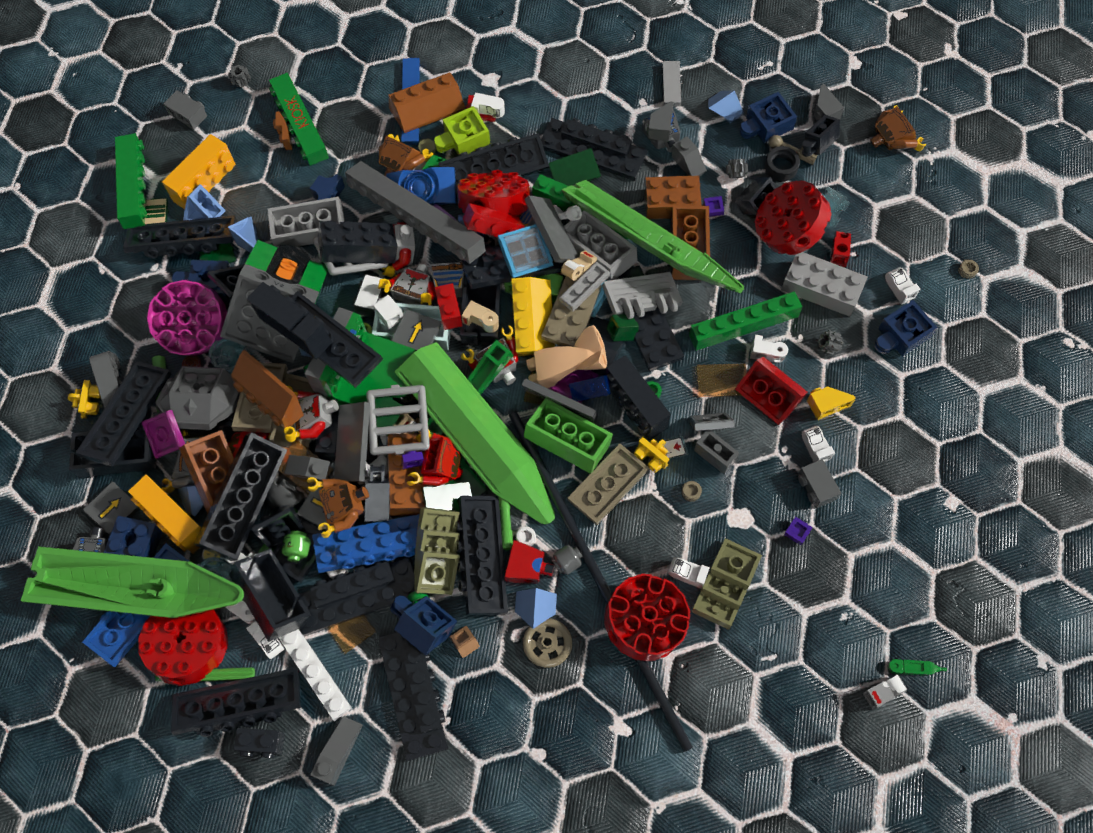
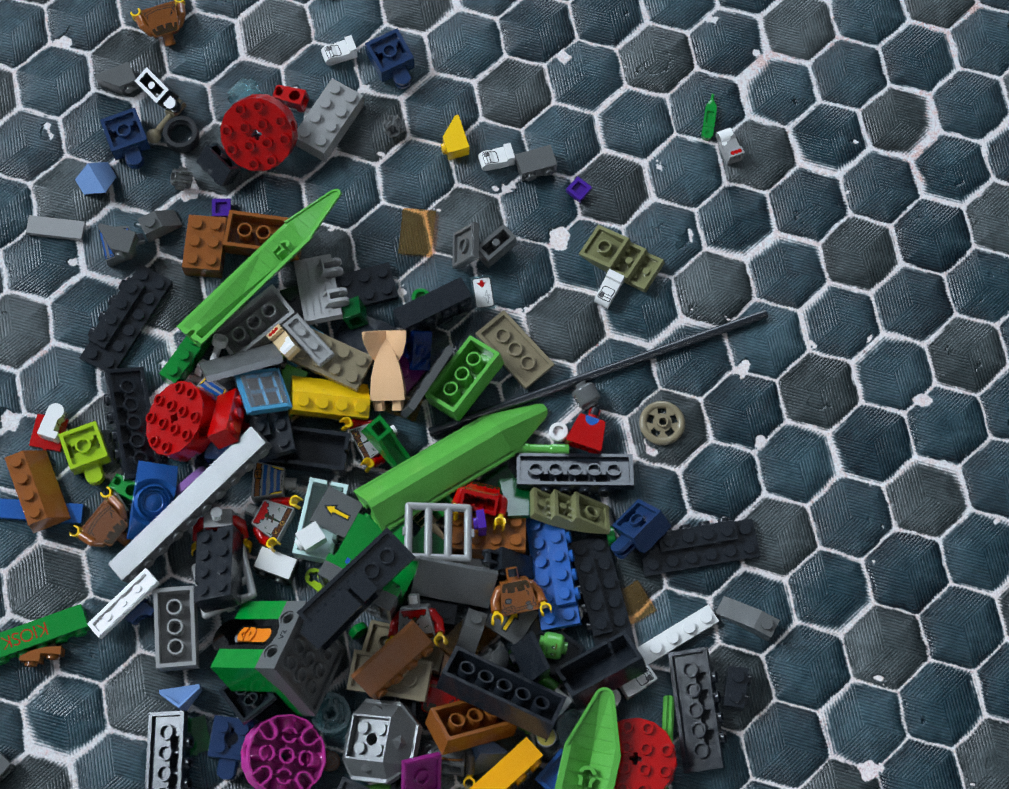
camera: 90 degrees left, 5 degrees up
(201, 205) = (132, 749): medium blue slope -> none
(202, 166) = (85, 745): light orange brick -> none
(325, 177) = (123, 603): none -> white tile
(428, 144) = (92, 496): olive tile -> none
(448, 306) = (314, 475): red brick -> none
(464, 641) = (654, 496): medium nougat slope -> none
(481, 316) = (330, 442): tan leg -> none
(535, 606) = (628, 430): medium blue slope -> none
(575, 168) = (152, 340): dark green piece -> none
(642, 598) = (651, 328): red brick -> none
(655, 451) = (483, 310): yellow hips -> none
(691, 491) = (528, 276): dark tan tile -> none
(745, 321) = (360, 199): green brick -> none
(771, 351) = (394, 184): white leg -> none
(771, 390) = (437, 188): red slope -> none

